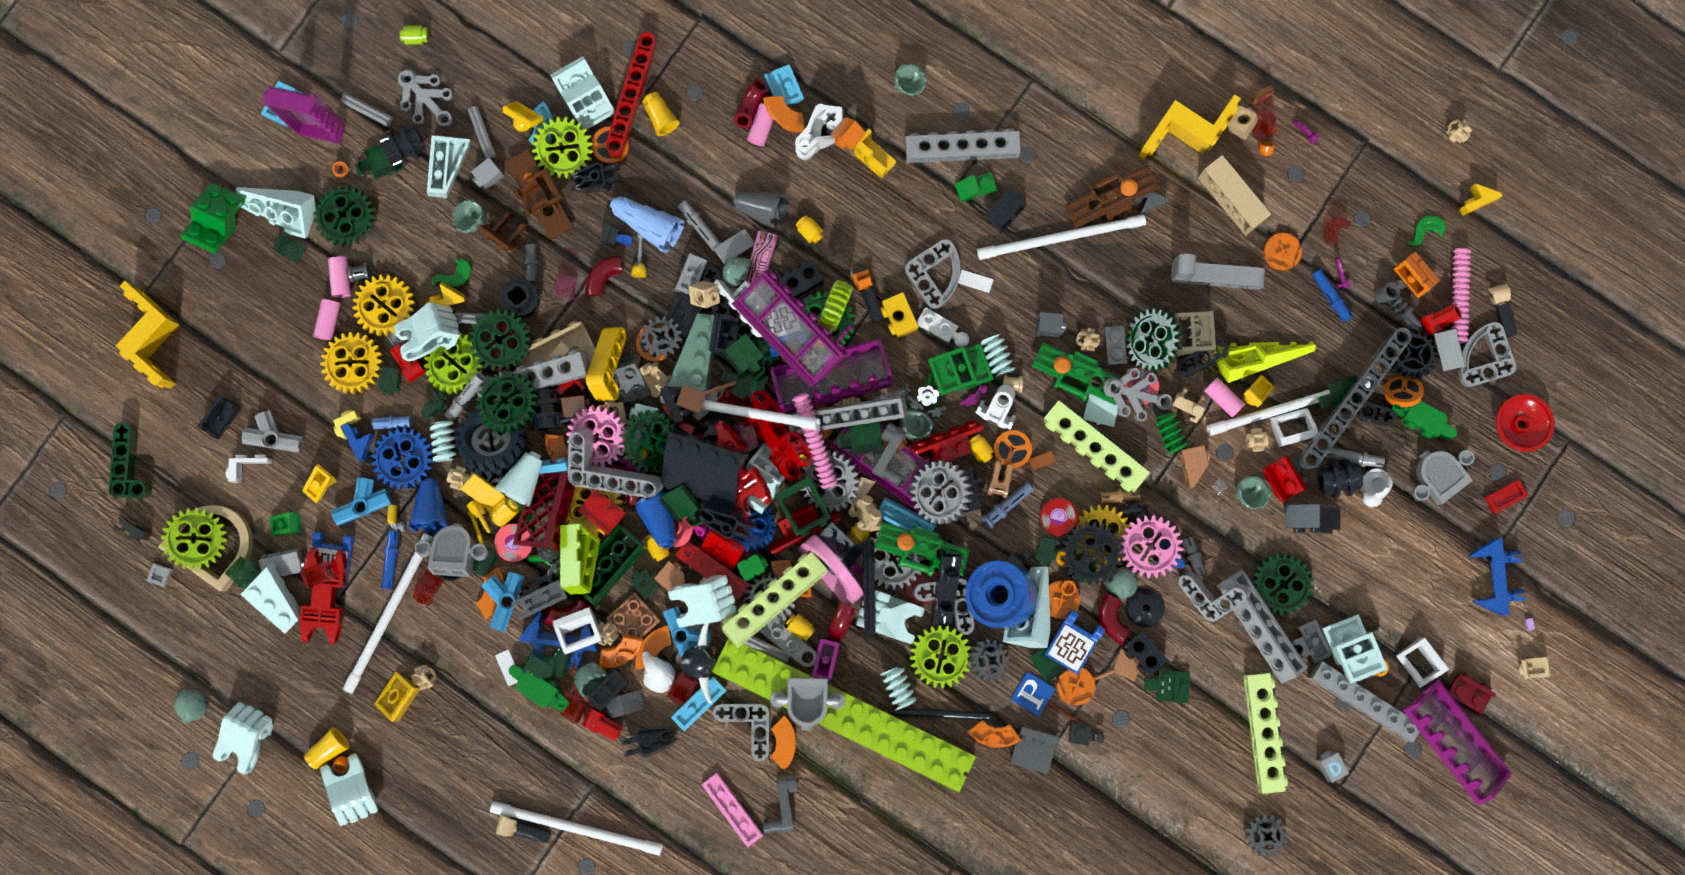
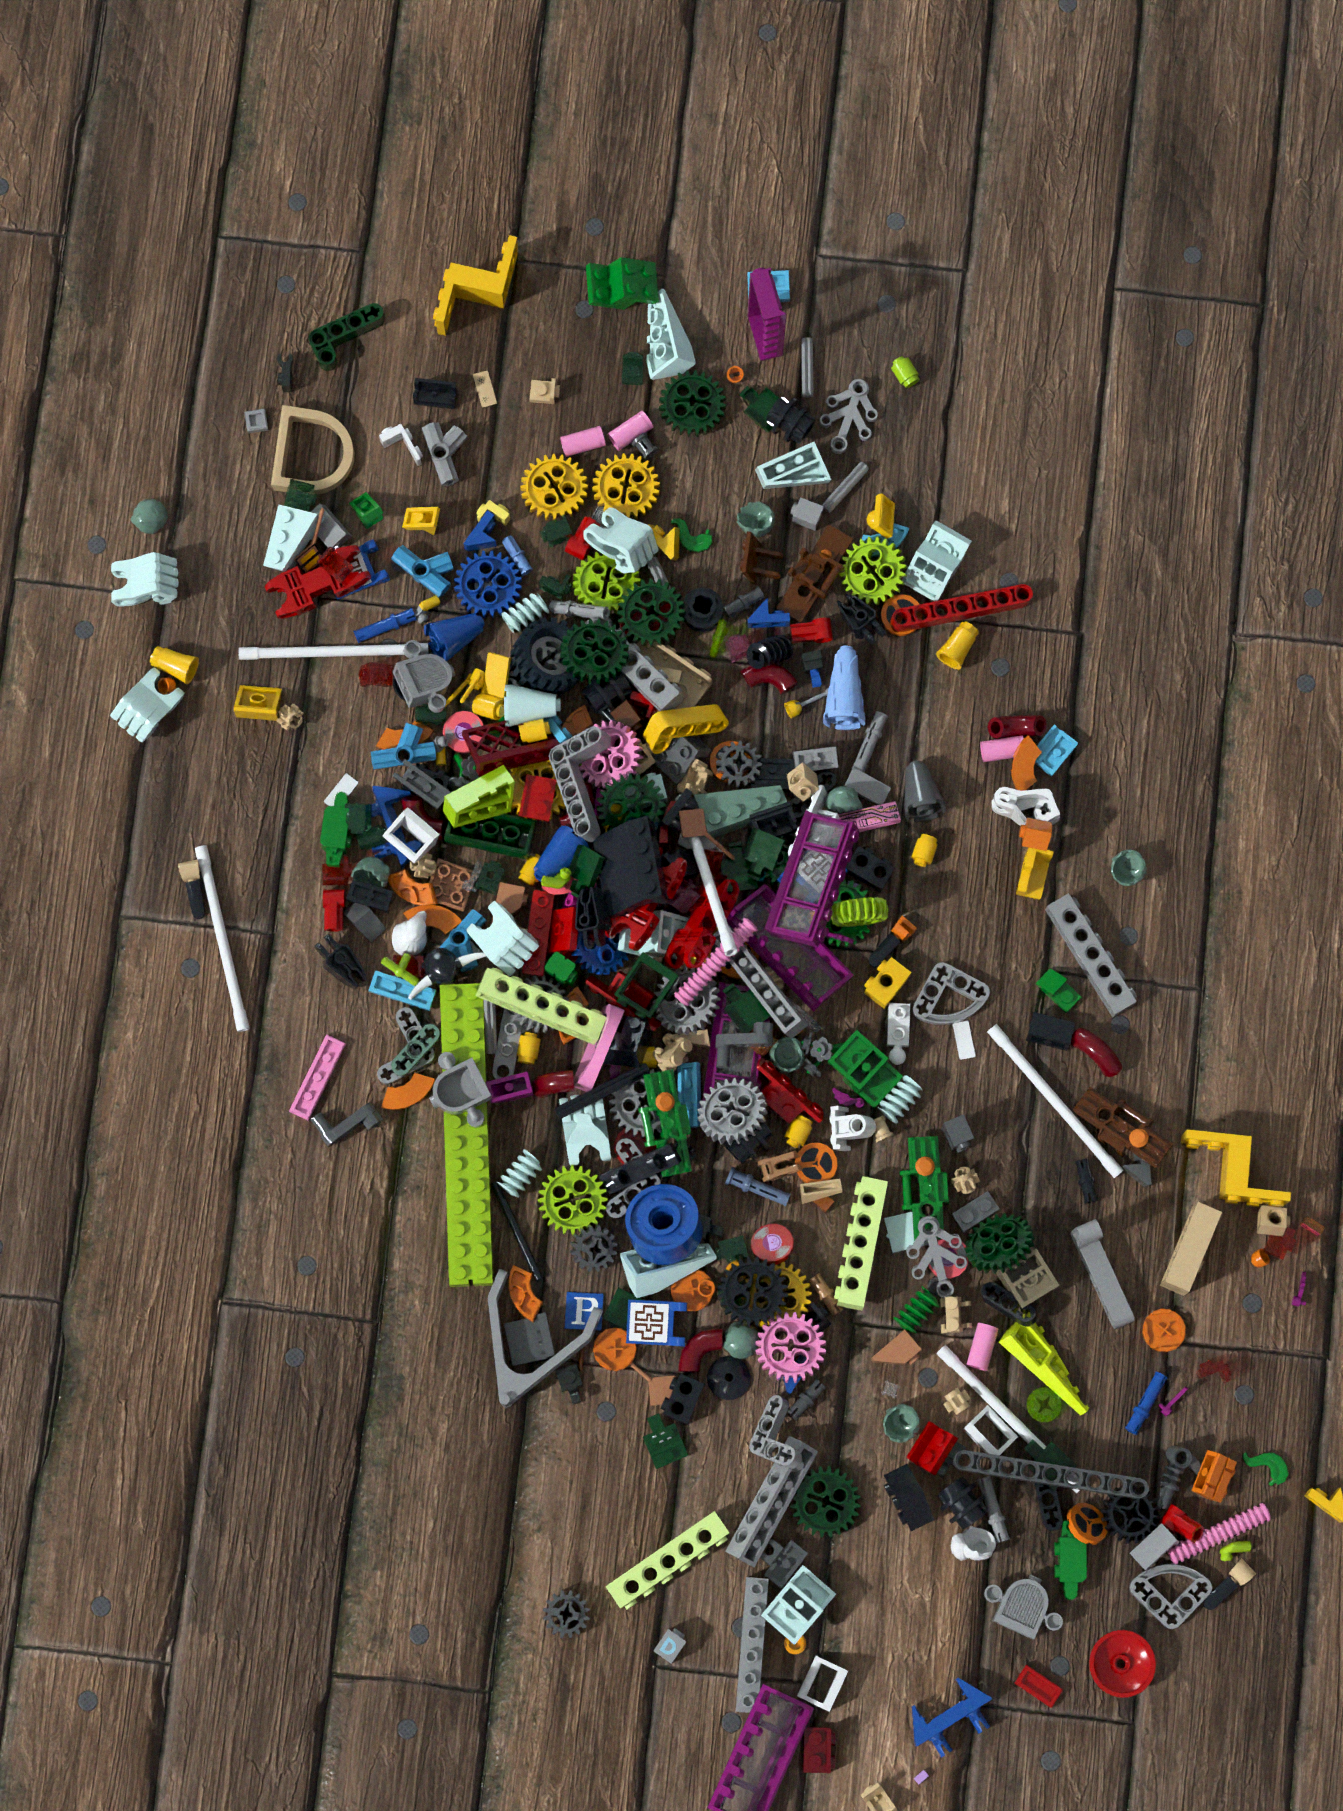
camera: 60 degrees right, 5 degrees down
(192, 556) = (290, 441): lime gear -> none
(238, 375) = (484, 388): none -> tan sticker
(267, 328) = (544, 391): none -> tan bracket
(299, 593) = (308, 558): none -> piece
(457, 477) = (498, 644): tan gear -> none
(512, 566) = (440, 743): none -> arm
(545, 485) = (534, 730): none -> yellow brick
(549, 298) = (718, 638): none -> clear neon green piece
(553, 255) = (763, 619): none -> blue slope
(583, 263) = (769, 651): none -> black piece
(586, 218) = (818, 631): none -> red piece
(636, 595) = (468, 885): none -> clear piece
(679, 530) = (558, 881): none -> lime arm
(682, 697) = (400, 970): none -> lime piece
(763, 730) = (409, 1066): none -> sand green beam
(1036, 457) = (818, 1190): none -> tan piece
(1041, 182) = (1097, 1051): none -> dark red cylinder
(1065, 781) = (515, 1385): none -> light grey piece
(1137, 247) = (1086, 1181): none -> black pin
(1258, 391) = (1007, 1377): yellow tile -> none
(1284, 371) = (1033, 1405): none -> clear neon green gear
(1476, 290) = (1236, 1546): none -> lime arm

